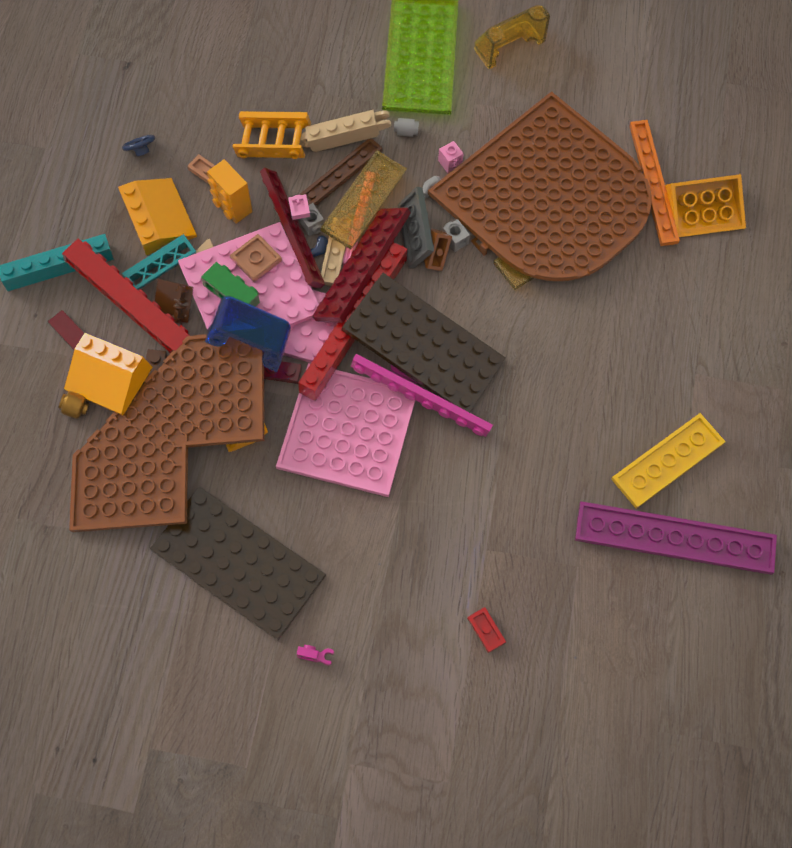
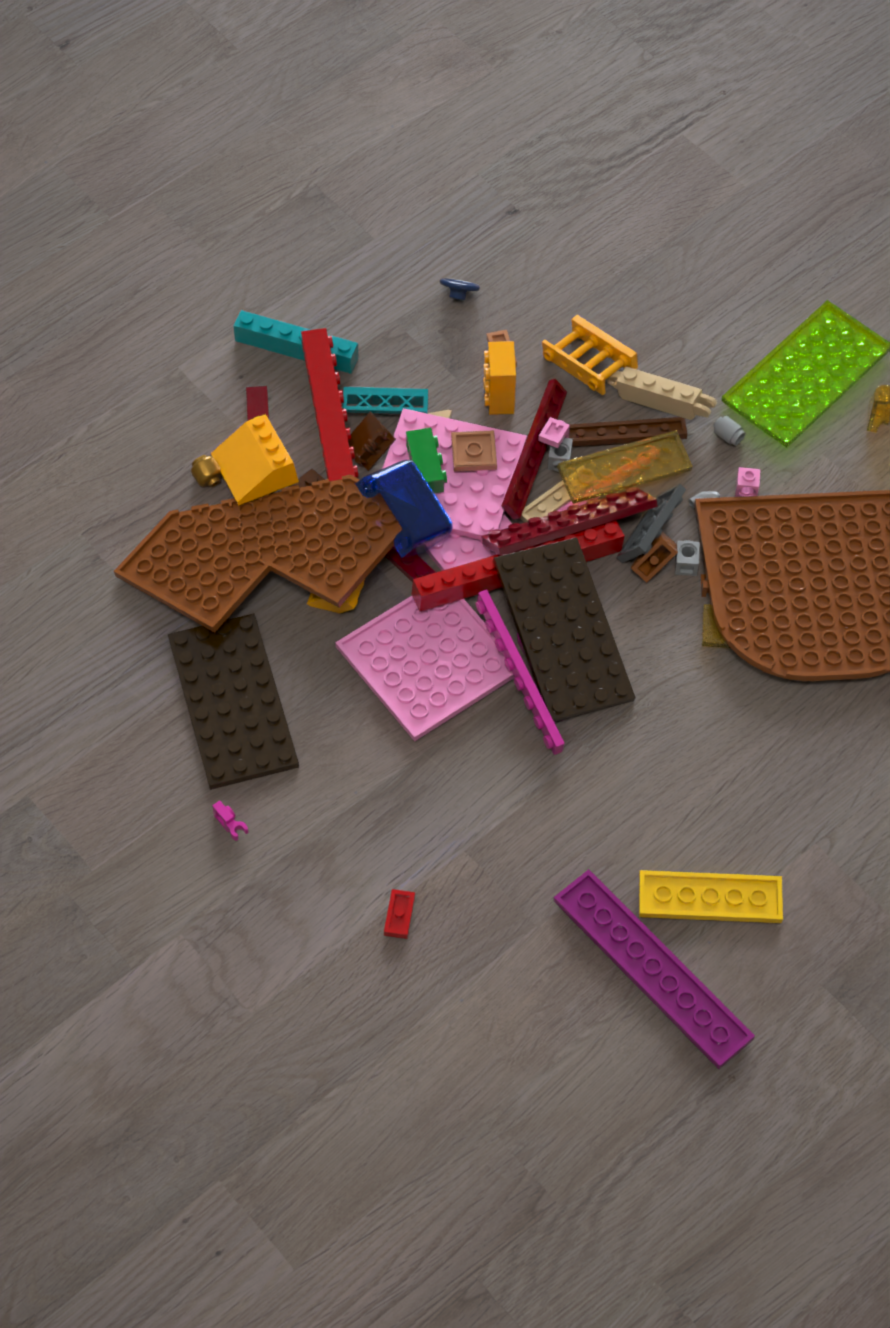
camera: 40 degrees right, 10 degrees down
(156, 212) = (423, 356): light orange slope -> none
(320, 247) = (547, 484): dark blue arm -> none

